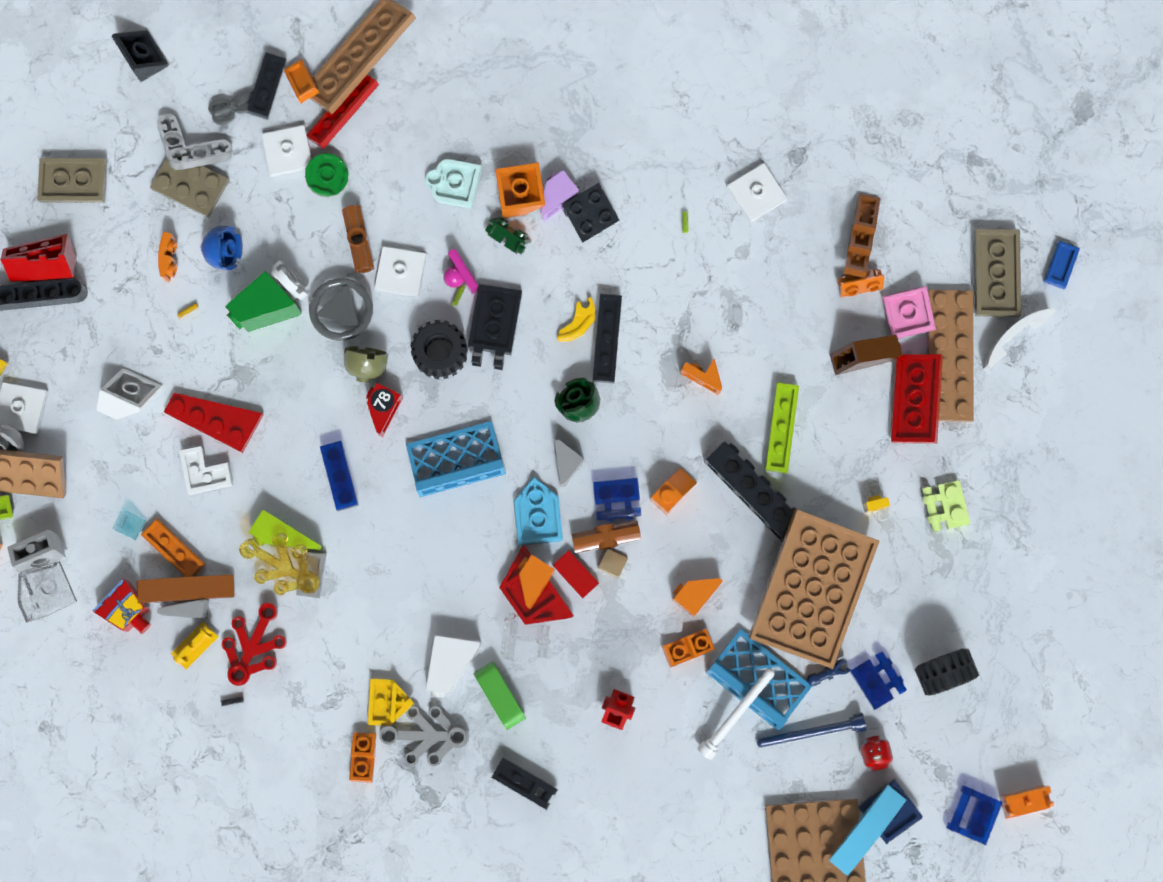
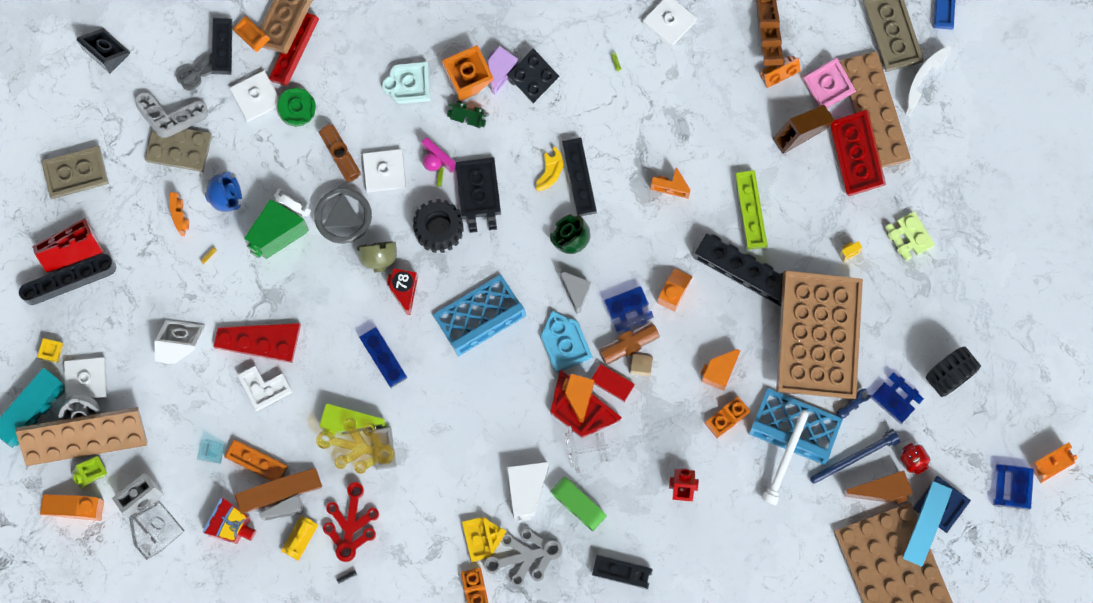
camera: 15 degrees left, 5 degrees down
(836, 777) = (885, 489): none -> dark orange slope

